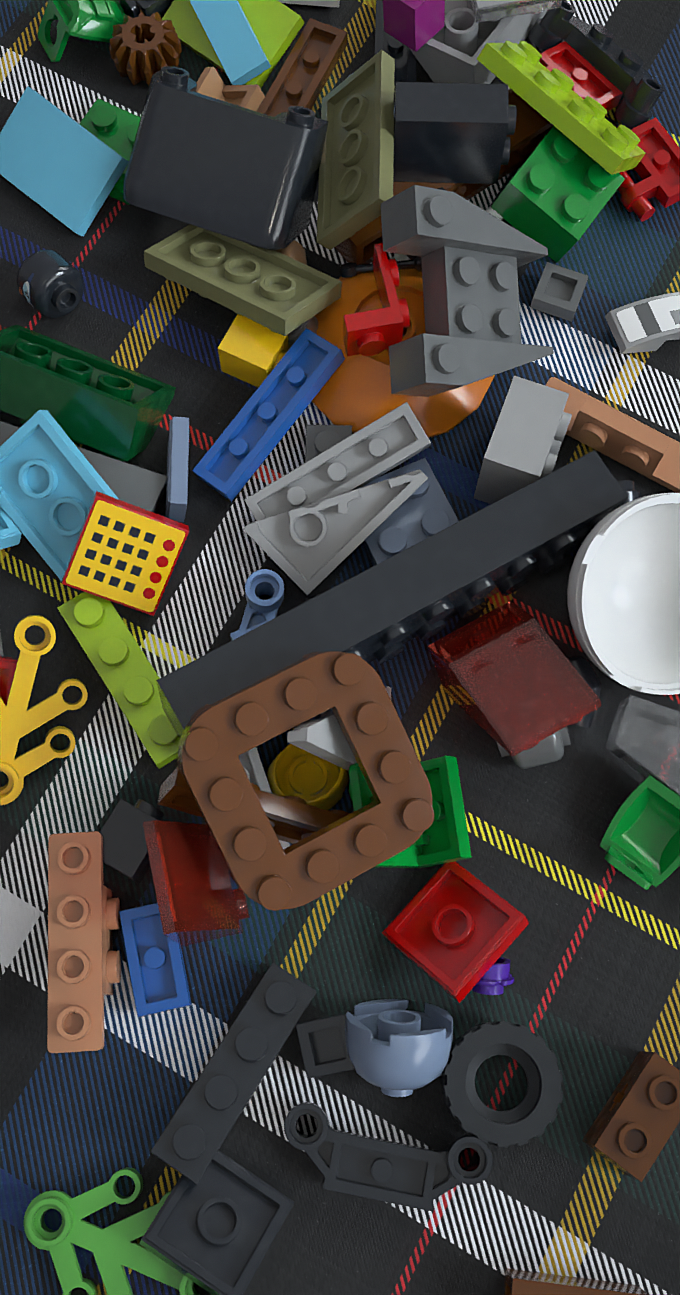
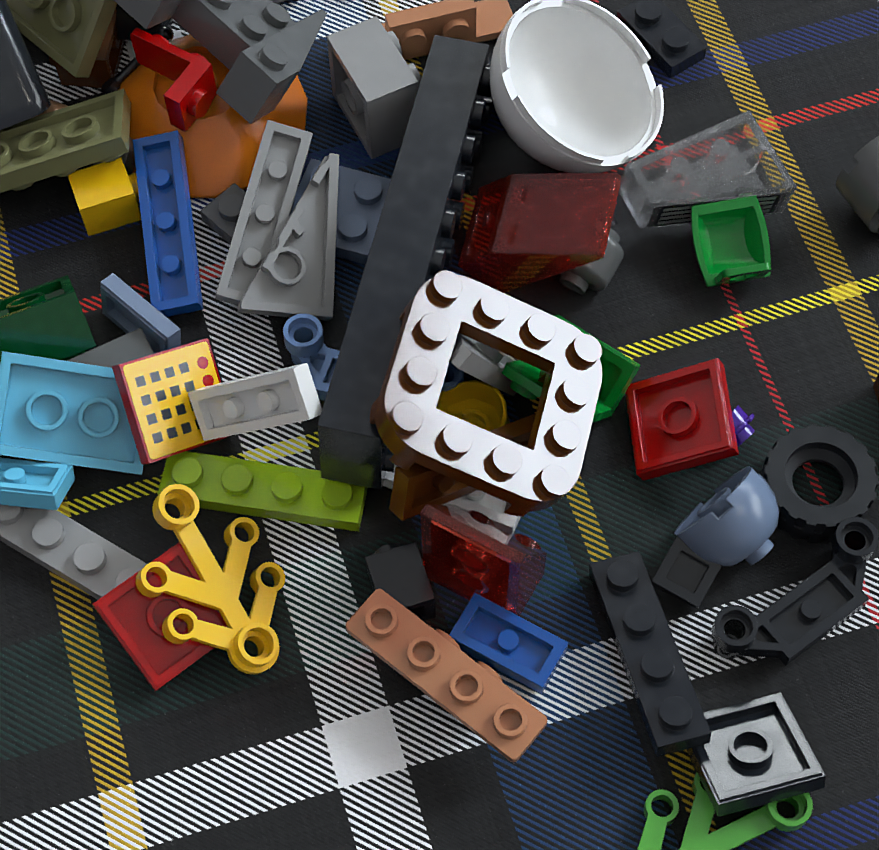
camera: 45 degrees left, 10 degrees down
(157, 616) = (256, 402): none -> white plate

